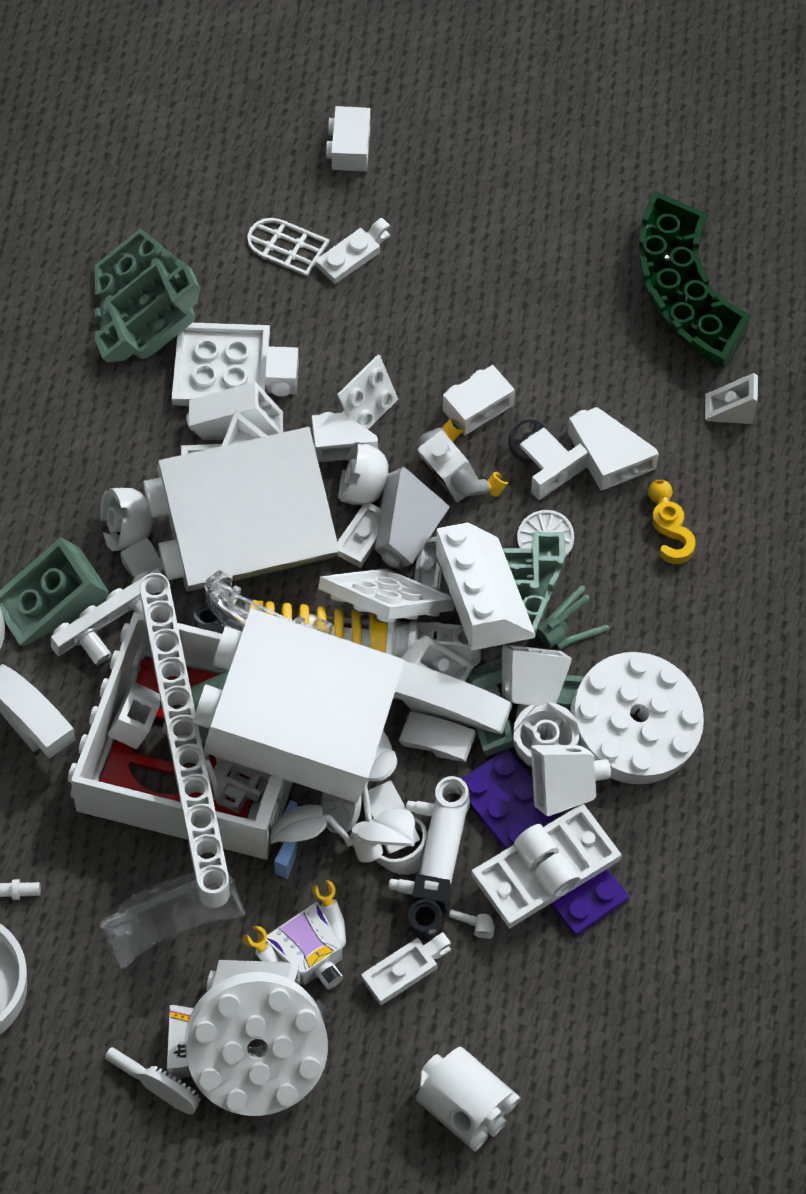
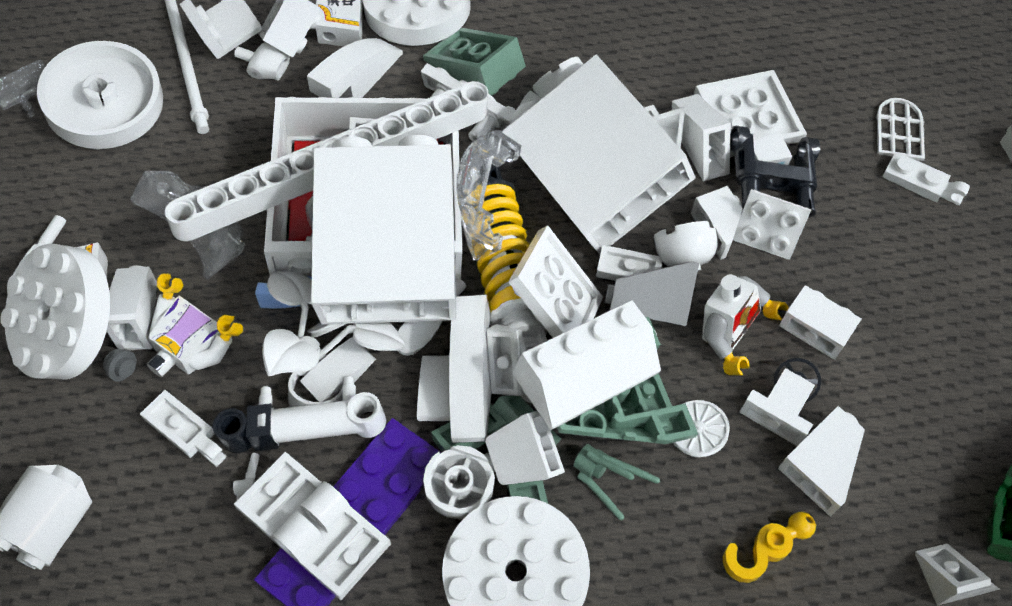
camera: 70 degrees right, 0 degrees up
(142, 298) = (776, 38): sand green wedge -> none
(320, 354) = (761, 174): none -> black connector
(565, 776) = (411, 511): white torso -> none

